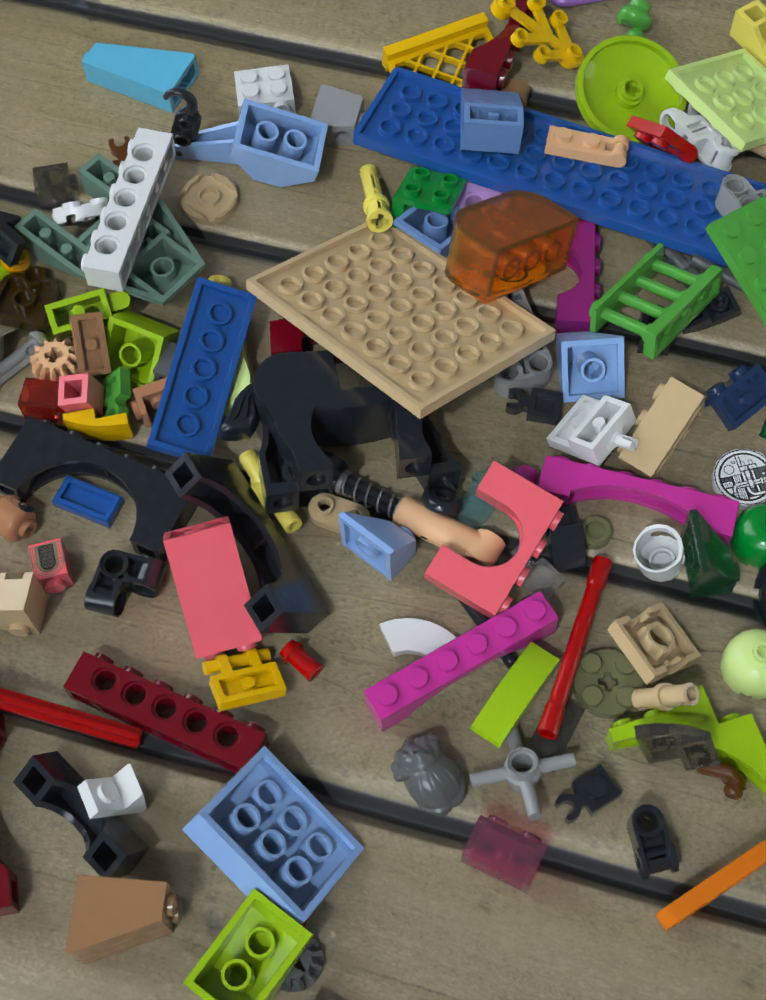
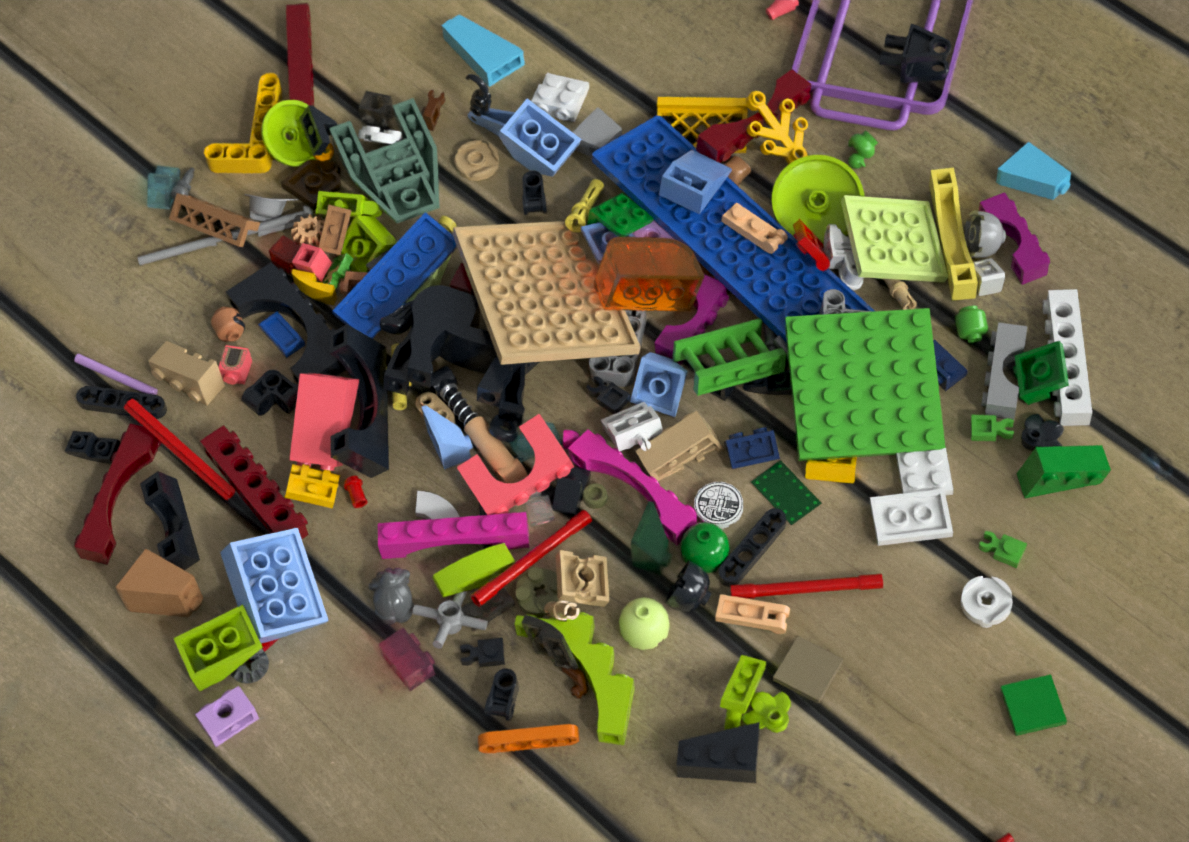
camera: 30 degrees right, 5 degrees down
(113, 794) = (194, 518): white slope -> none
(128, 210) = (407, 146): white brick -> none
(306, 212) = (533, 196): none -> black piece
(664, 551) = (618, 524): white helmet -> none

